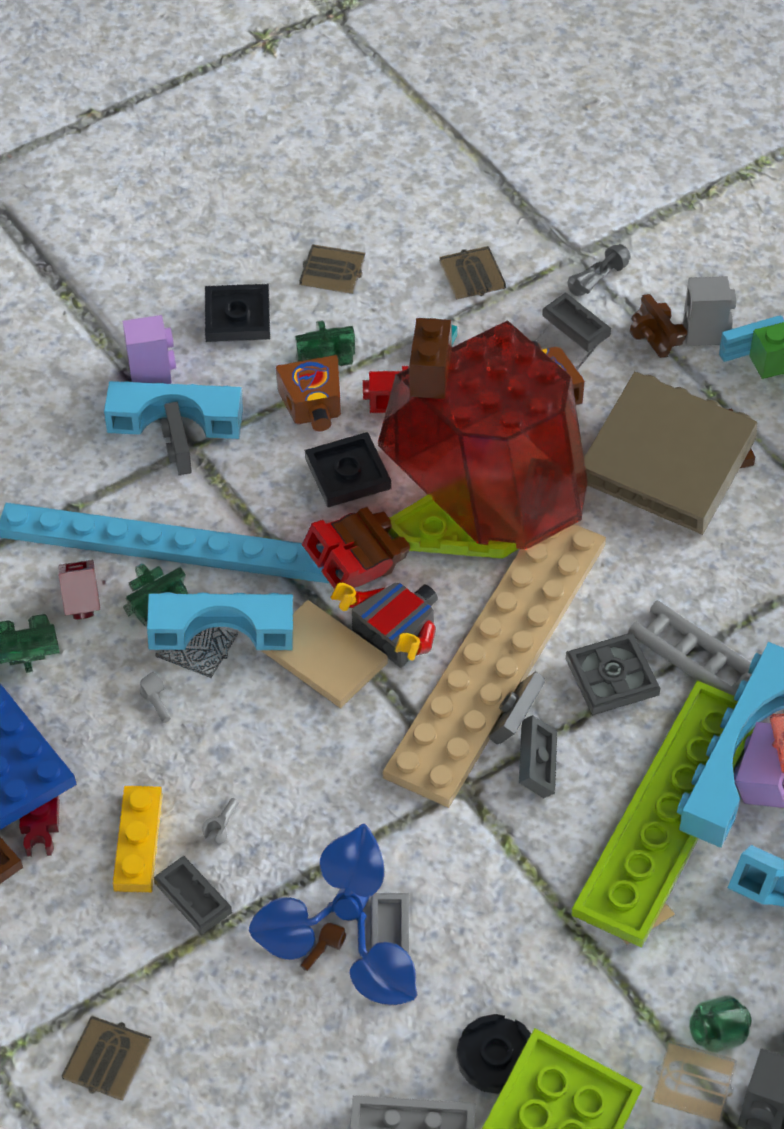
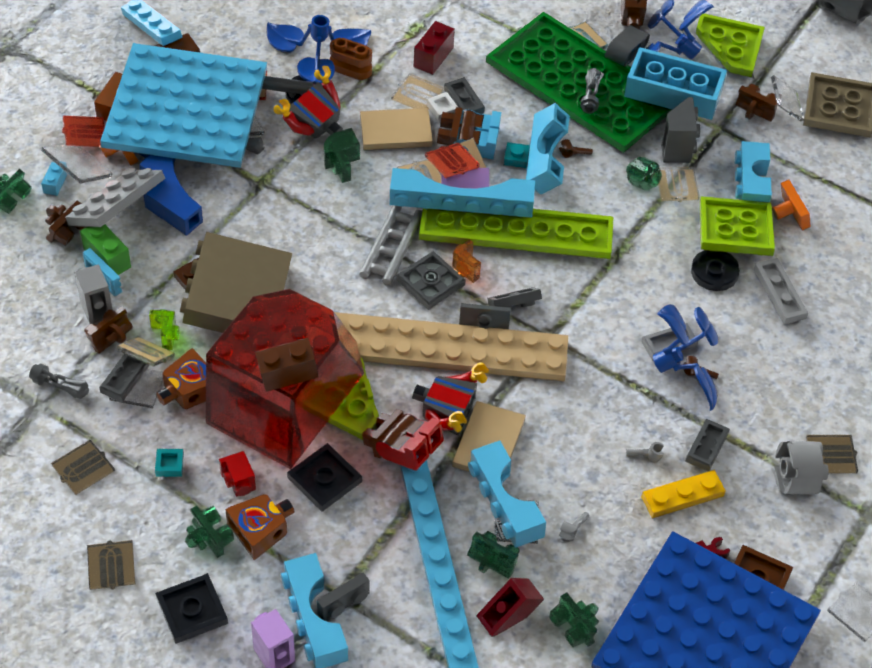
camera: 115 degrees left, 0 degrees up
(87, 974) = (800, 467): none -> light grey brick
(606, 348) = (145, 351): none -> clear piece
(624, 369) = (166, 322): none -> clear neon green bracket
(627, 718) = (465, 262): none -> clear orange bracket

